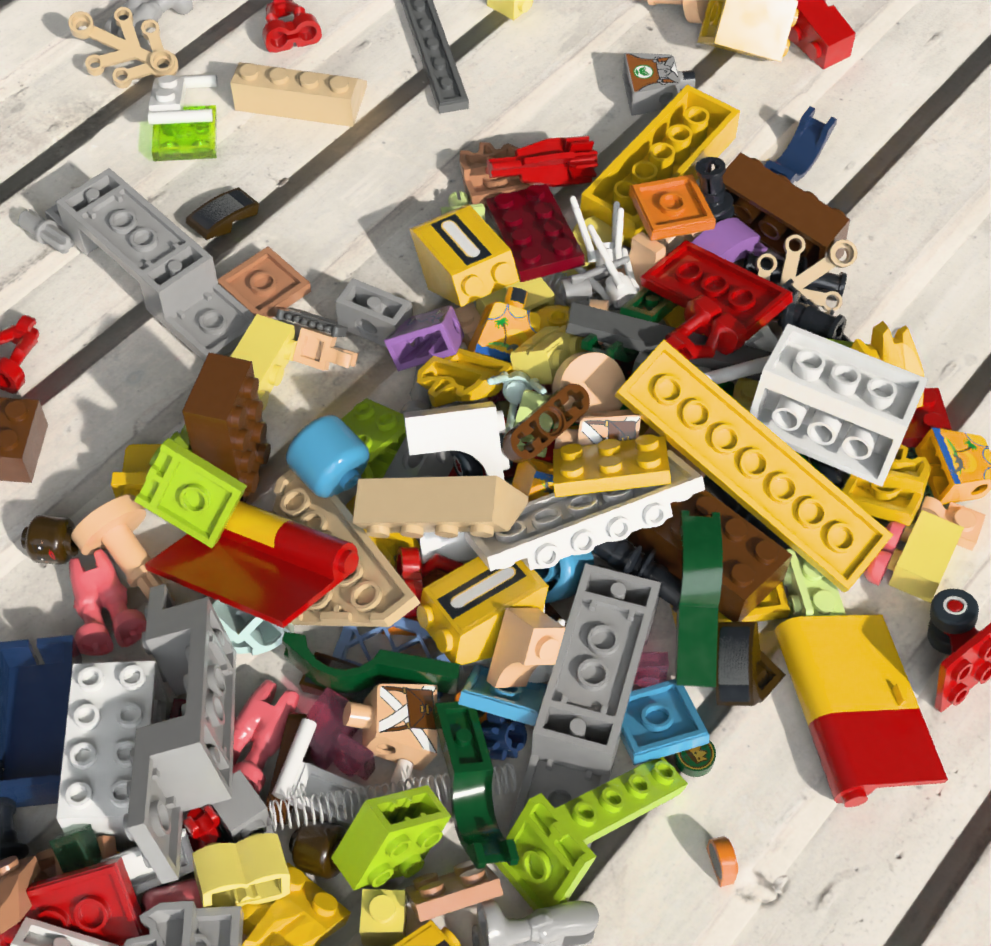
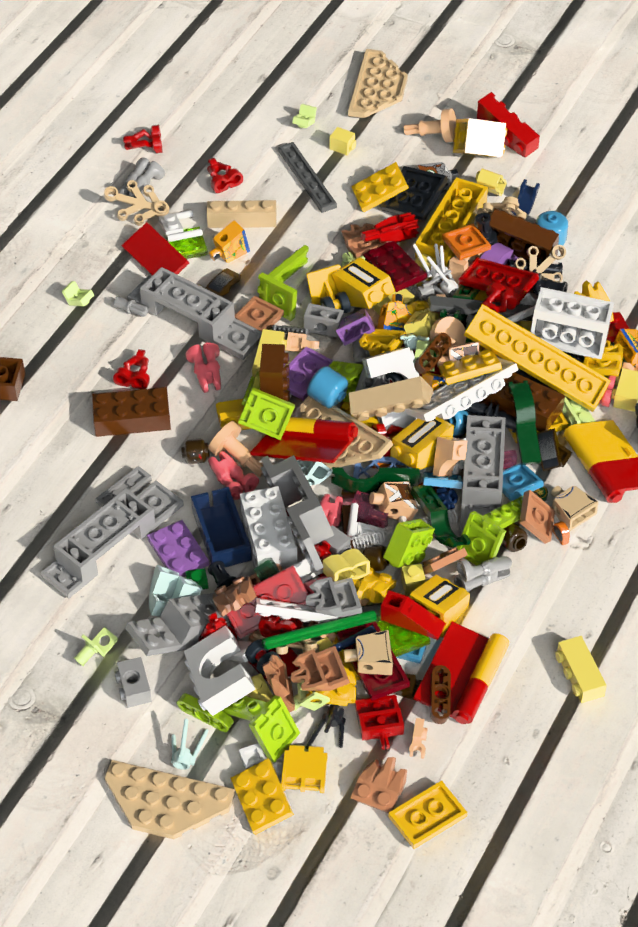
camera: 10 degrees left, 5 degrees down
(123, 139) = (154, 251): none -> red tile
(135, 381) = (208, 372): none -> coral piece
(255, 143) = (230, 243): none -> light orange torso
(299, 231) = (275, 291): none -> lime bracket
(315, 395) = (303, 369): none -> medium lavender plate
(394, 259) = (324, 289): none -> yellow plate
(550, 82) = (379, 187): none -> yellow plate
(607, 102) = (420, 196): none -> black plate
(620, 856) = (515, 538): none -> dark brown head
(677, 817) = (537, 516): none -> nougat plate
(753, 102) = (492, 180): none -> light yellow brick
(759, 802) = (573, 506): none -> tan torso
(766, 149) = (508, 205): none -> tan plant
(850, 195) = (554, 221): none -> dark azure head

